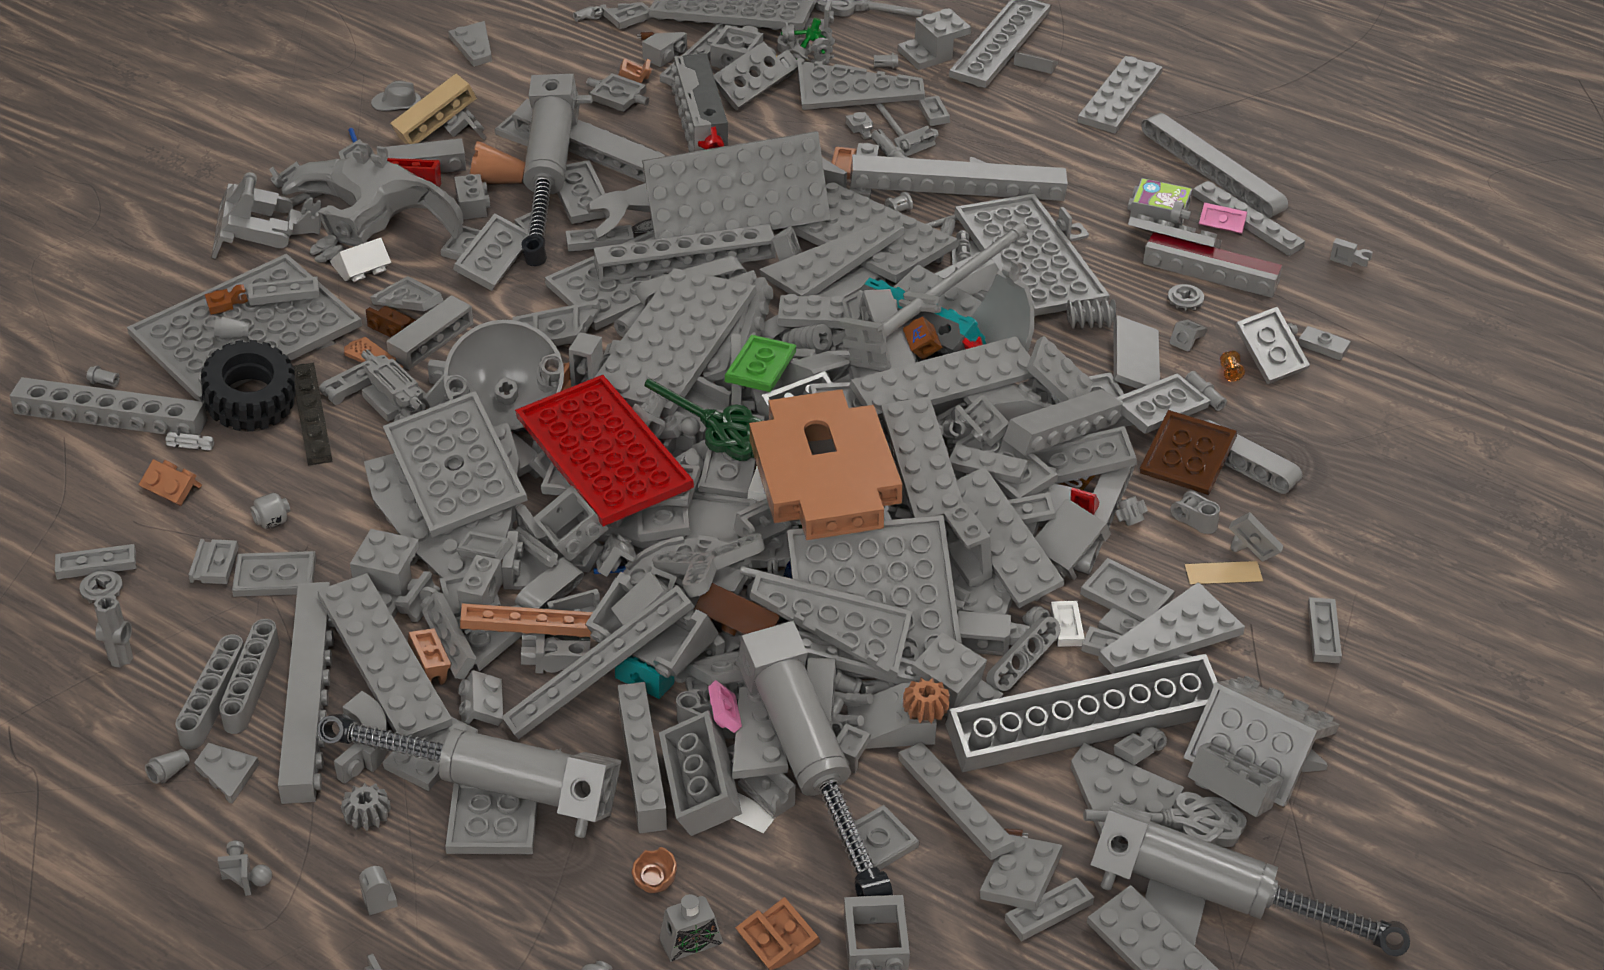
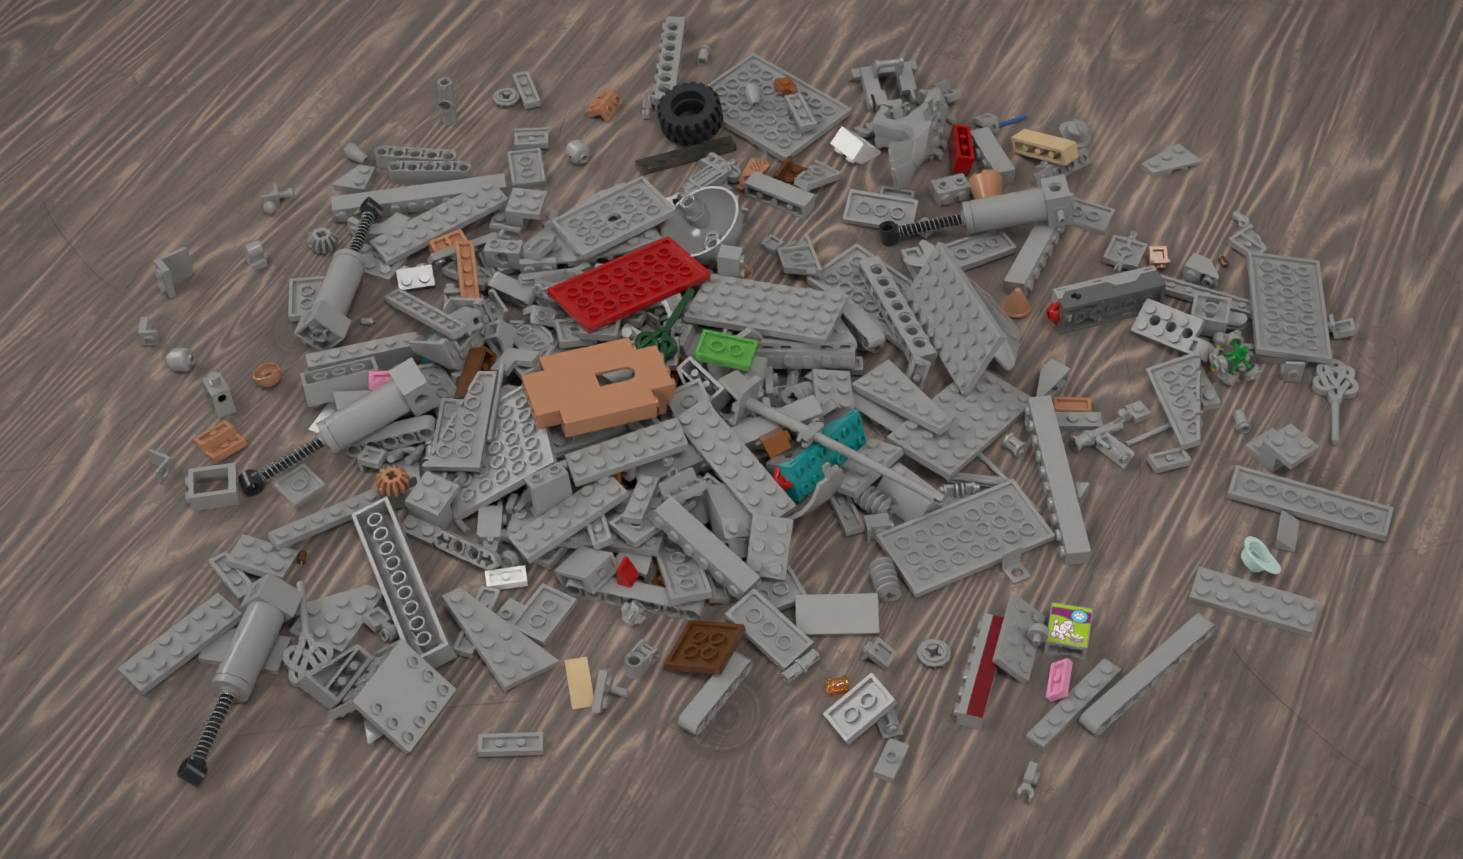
camera: 85 degrees right, 5 degrees up
(701, 567) = (508, 345): light grey piece -> none
(1073, 80) = (1257, 557): none -> light aqua piece

